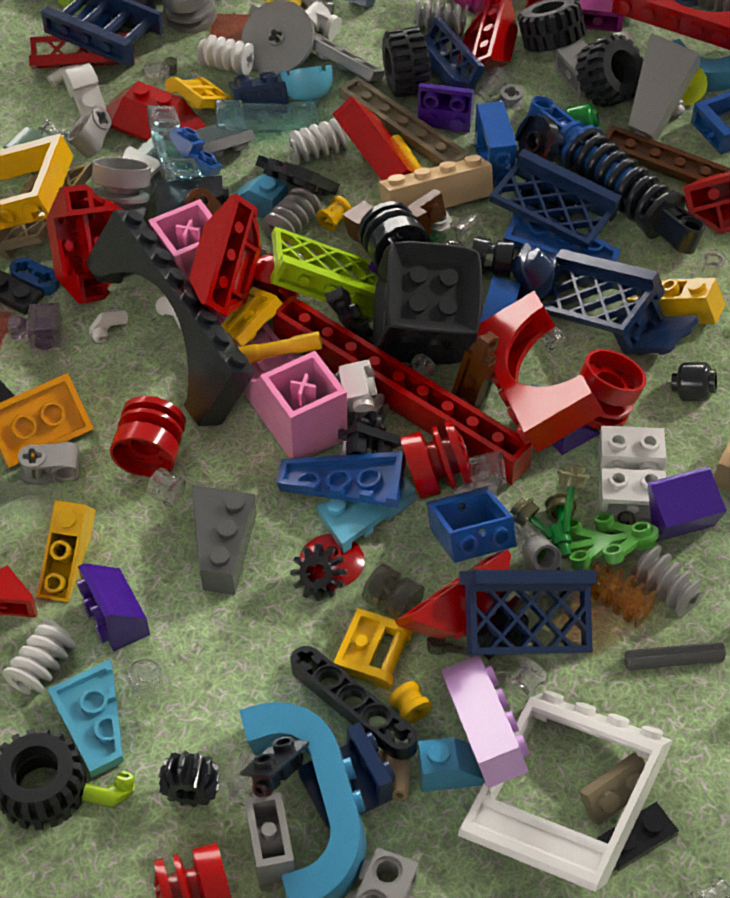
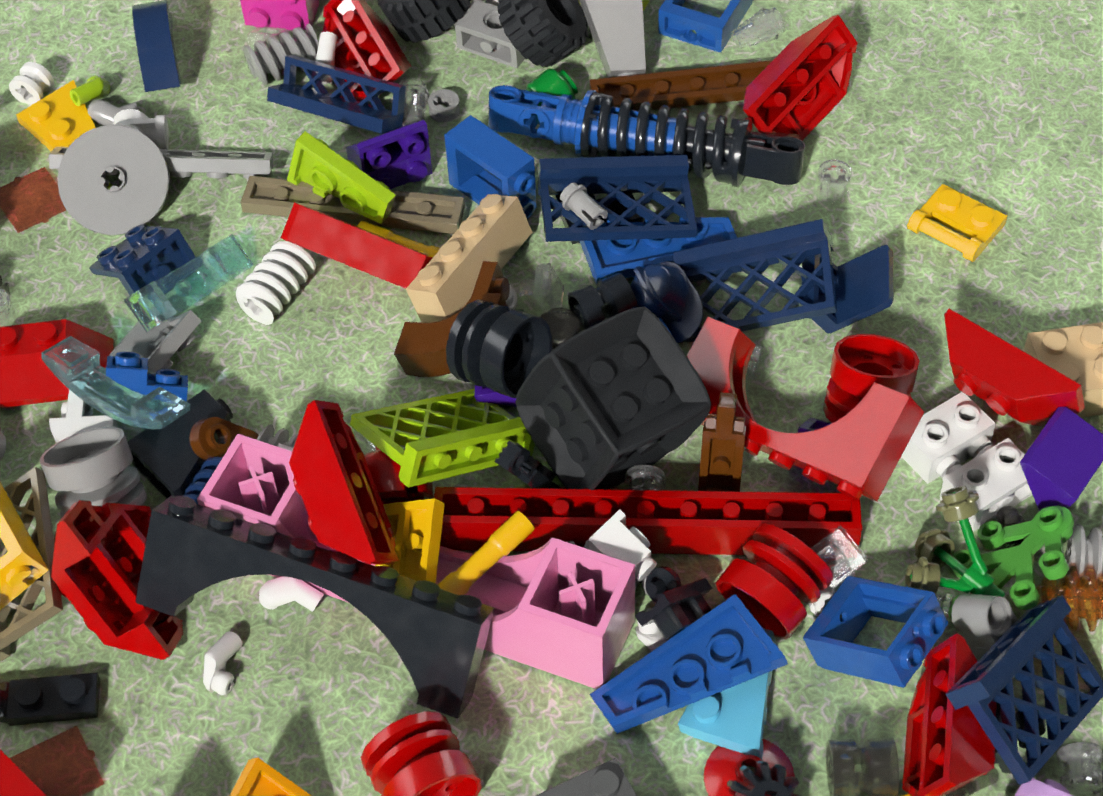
camera: 35 degrees left, 0 degrees up
(36, 273) = (66, 657): blue beam -> none
(41, 327) = (141, 717): brick -> none
(198, 92) = (73, 299): yellow plate -> none
(226, 55) = (63, 235): white piece -> none
(263, 193) = (267, 388): dark azure slope -> none
(292, 212) = (329, 378): light grey piece -> none
(297, 176) = (287, 339): black plate -> none
(308, 83) = (201, 215): medium azure cylinder -> none
(333, 213) = (373, 358): yellow bush -> none
(397, 98) = (332, 174): none -> lime wing
(405, 61) = (296, 109): black tyre -> none
(465, 27) = (326, 52): none -> white arm
(523, 183) = (575, 198): none -> light grey pin
(547, 133) = (542, 125): black plate -> none
(691, 297) = (855, 229): yellow slope -> none
(691, 428) = (1006, 375): none -> red wedge
(695, 381) = (928, 320): black head -> none

